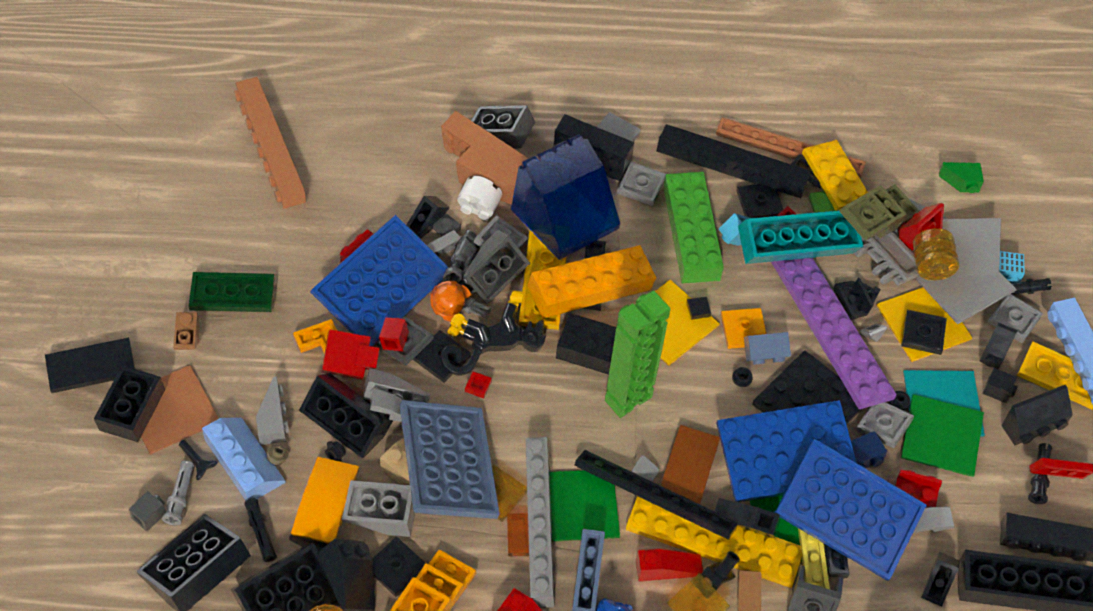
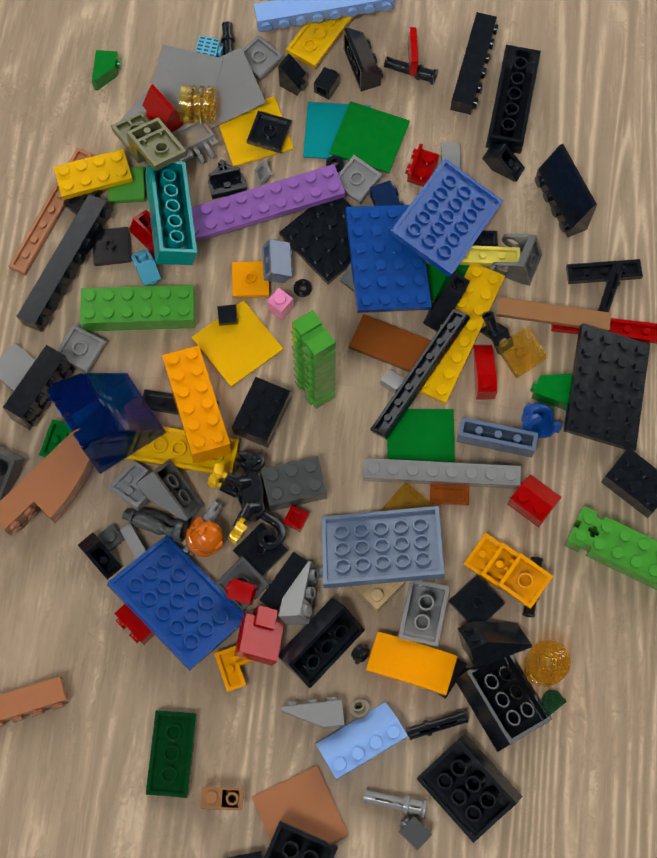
camera: 80 degrees left, 15 degrees up
(201, 465) = (365, 782): black piece -> none
(386, 403) = (321, 599): light grey slope -> none
(413, 377) = (284, 579): none -> black tile
(479, 197) = (85, 501): white brick -> none
(515, 379) = (294, 483): none -> dark grey brick
(718, 354) = (280, 304): none -> bright pink brick

